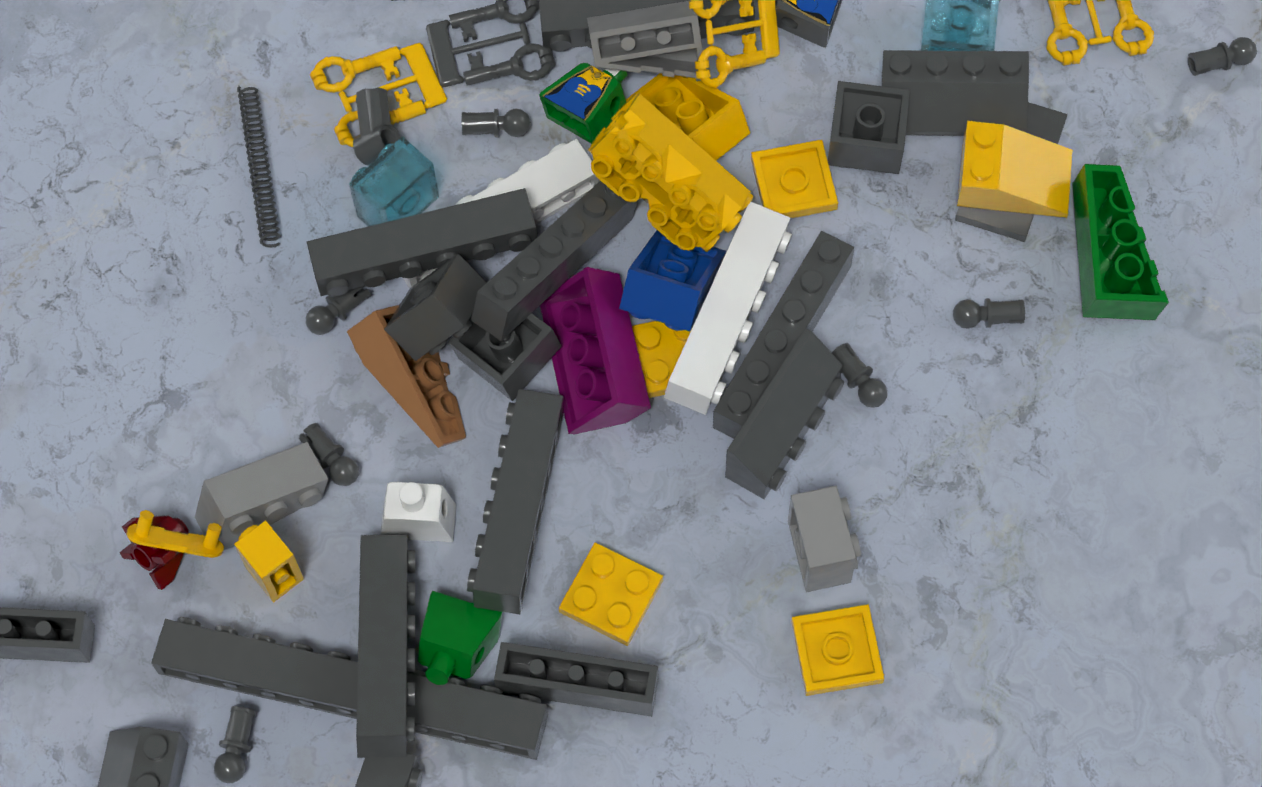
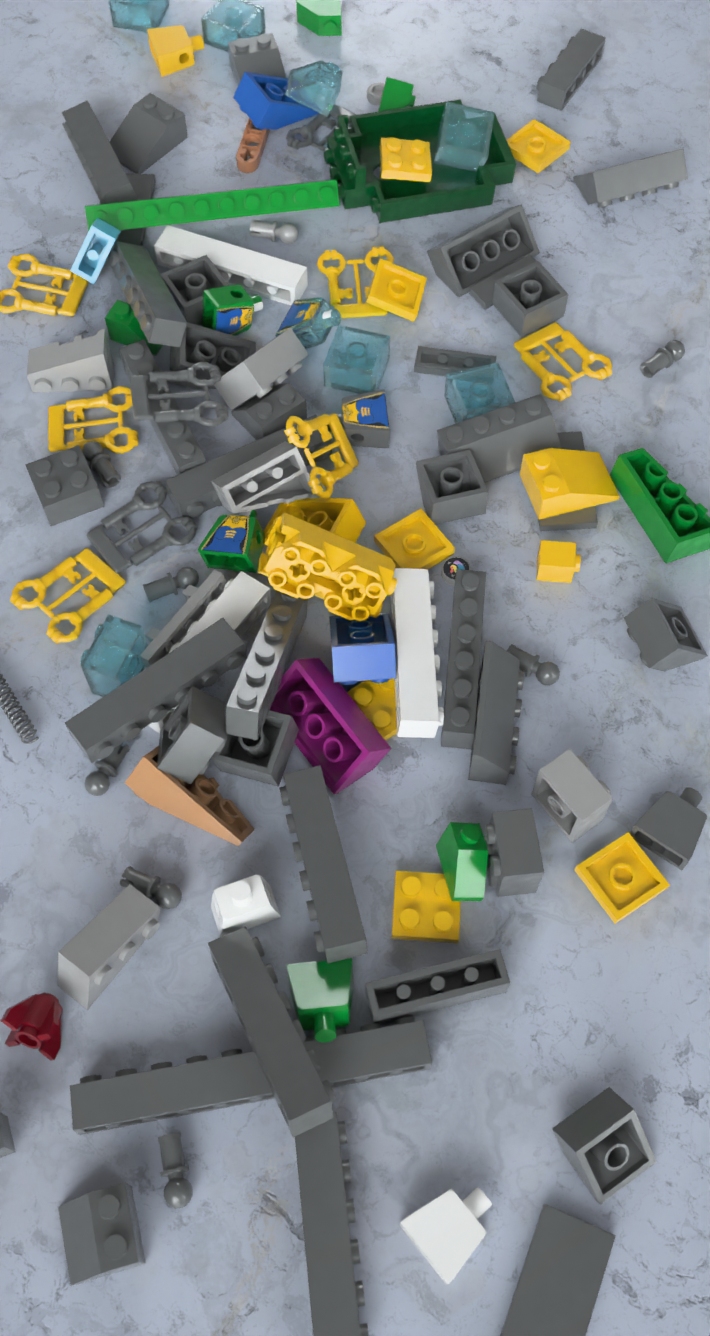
camera: 25 degrees left, 5 degrees down
(190, 543) = (35, 1017): yellow piece -> none
(268, 560) = (138, 996): yellow brick -> none
(373, 124) = (78, 617): dark grey piece -> none
(500, 165) = (177, 627): none -> light grey hinge
(669, 561) = (464, 860): none -> green slope
(726, 573) = (513, 852): none -> dark grey brick
(829, 223) = (449, 568): none -> tile
(922, 618) = (672, 827): none -> dark grey torso
(951, 265) = (557, 561): none -> yellow brick
(969, 313) = (586, 591): dark grey pin -> none
(1032, 402) = (663, 635): none -> dark grey slope

